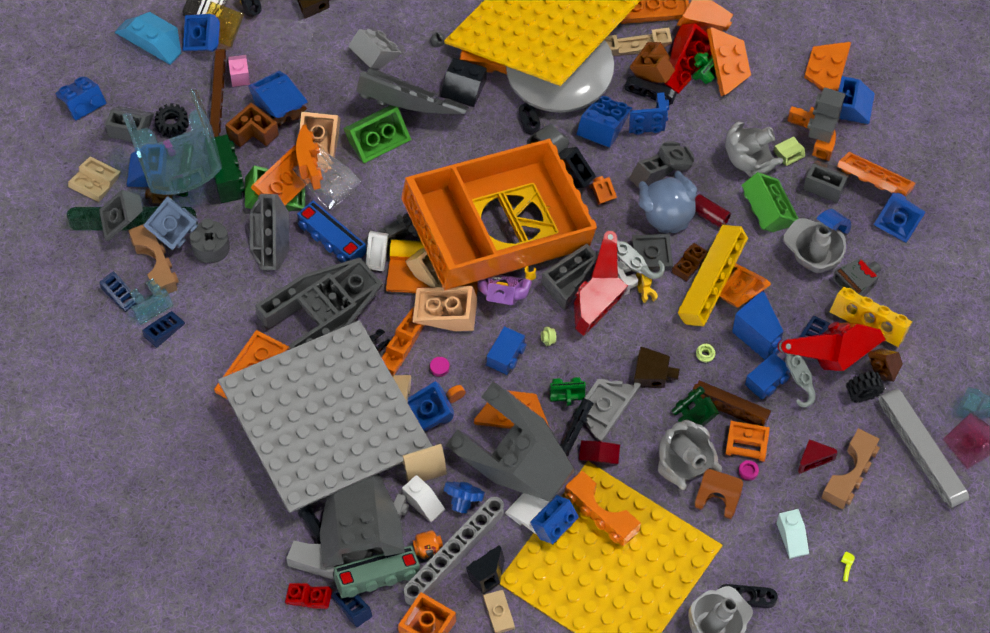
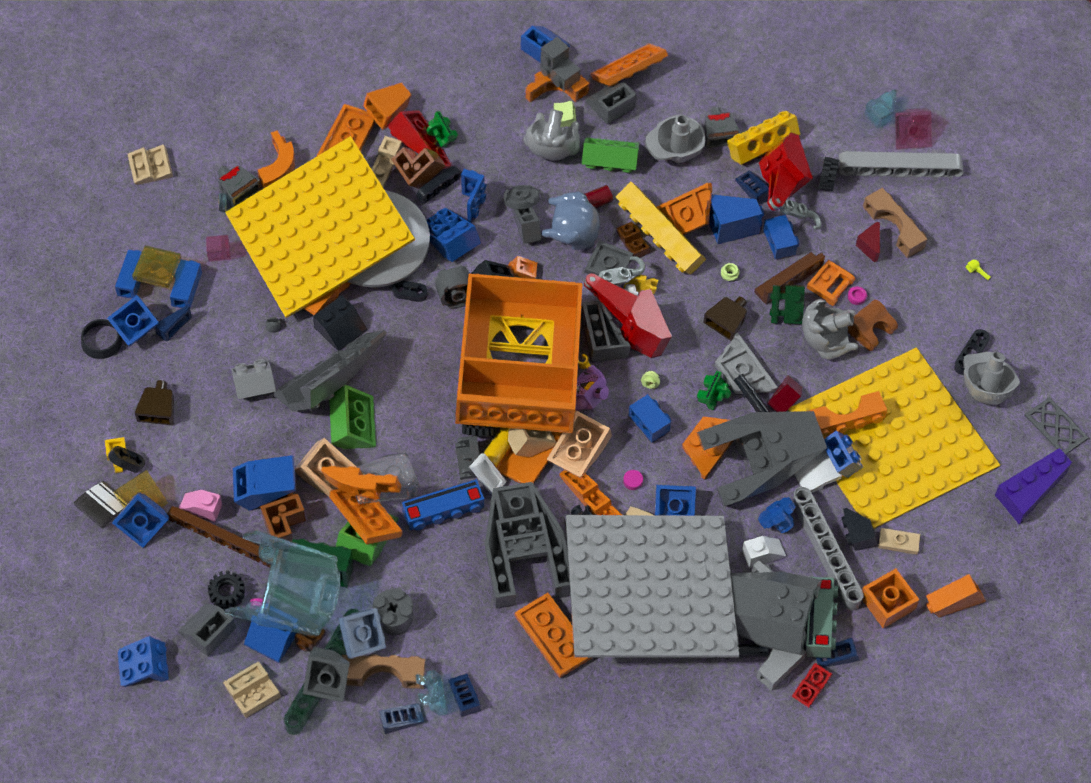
camera: 65 degrees left, 0 degrees up
(152, 35) = (107, 567): dark azure wedge -> none
(269, 231) = (417, 556): flat silver wedge -> none
(425, 463) = (735, 531): tan slope -> none
(427, 544) = (811, 564): orange head -> none
(455, 393) = (670, 477): orange tile -> none
(729, 60) = (449, 109): orange wing -> none
(793, 533) = (933, 291): light aqua slope -> none
(827, 65) = (493, 45): orange wing -> none
(835, 220) = (669, 110): blue slope -> none
(886, 363) = (815, 149): reddish brown slope -> none
(899, 217) = (680, 69): blue slope -> none

